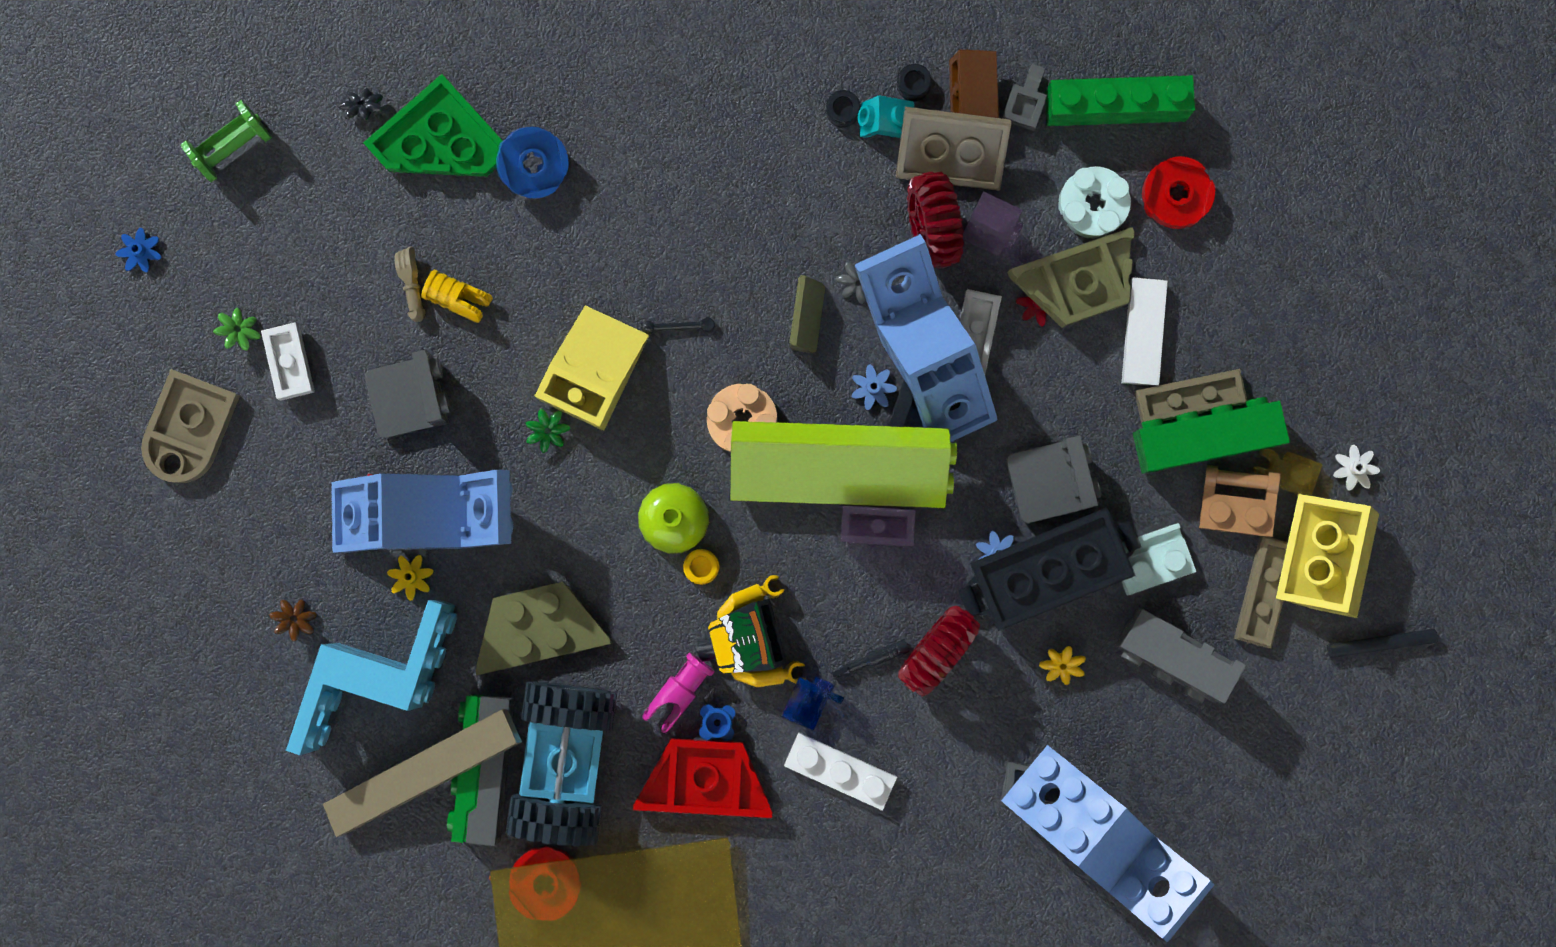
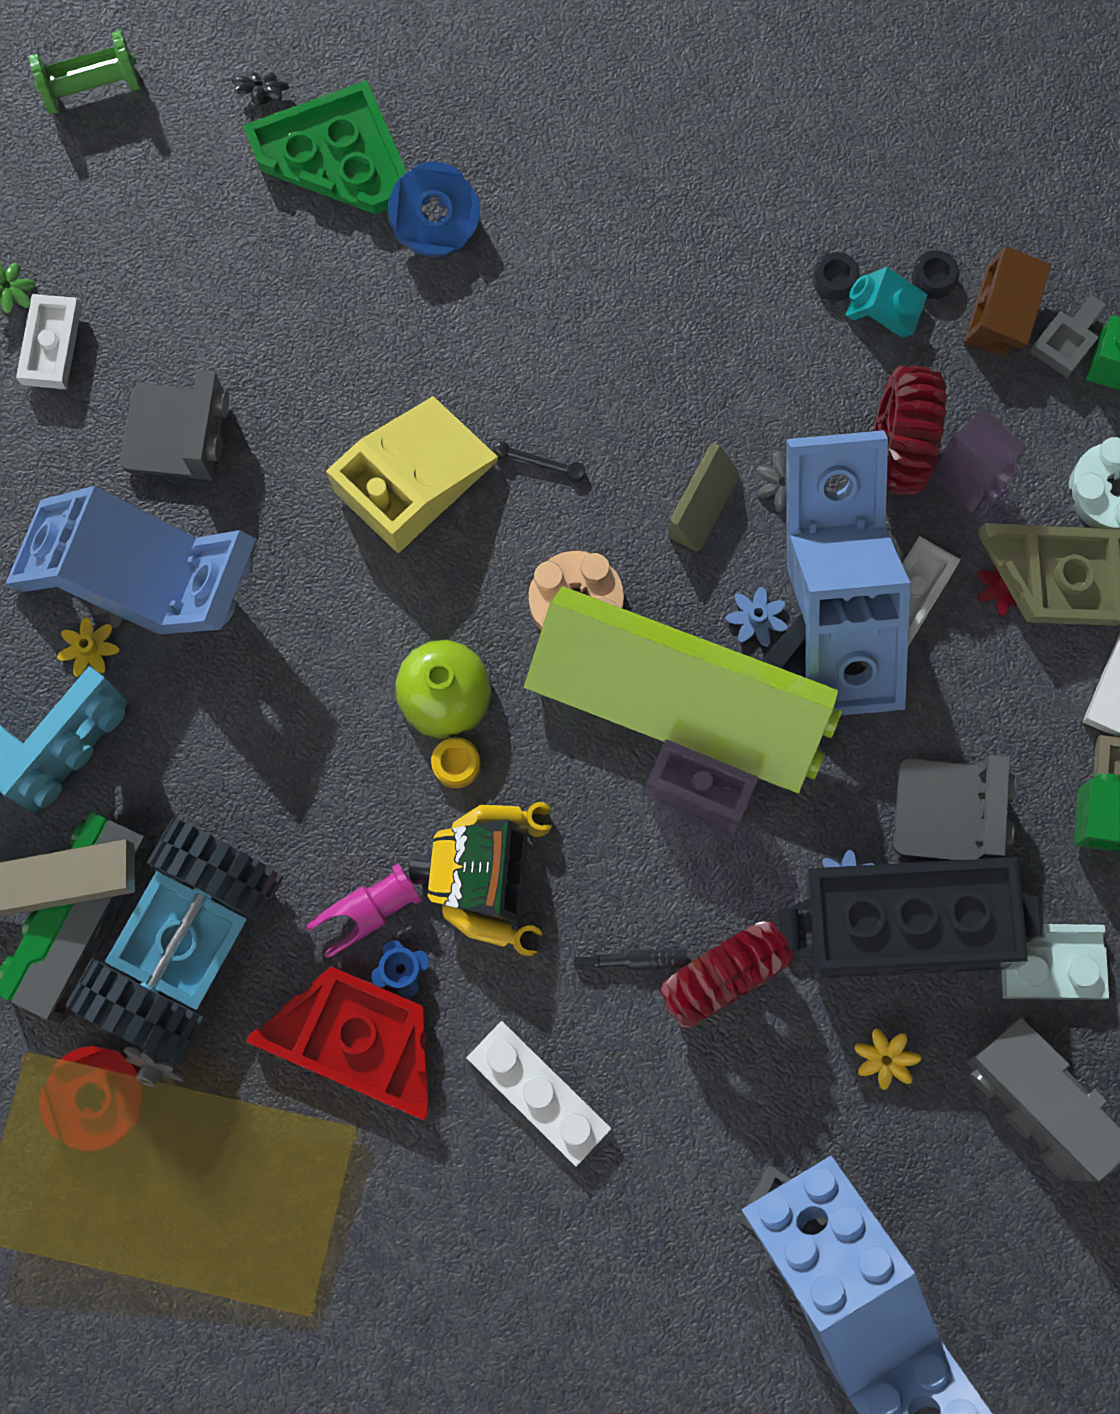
camera: 20 degrees right, 10 degrees down
(407, 271) = (235, 290): dark tan piece -> none
(450, 294) = (280, 332): yellow hinge -> none
(536, 628) = (217, 765): olive wing -> none
(550, 433) = (331, 535): green plant -> none
(579, 852) = (152, 1068): none -> dark grey plant
(809, 701) = (531, 982): clear blue bracket -> none
(959, 145) = (976, 358): dark tan tile -> none

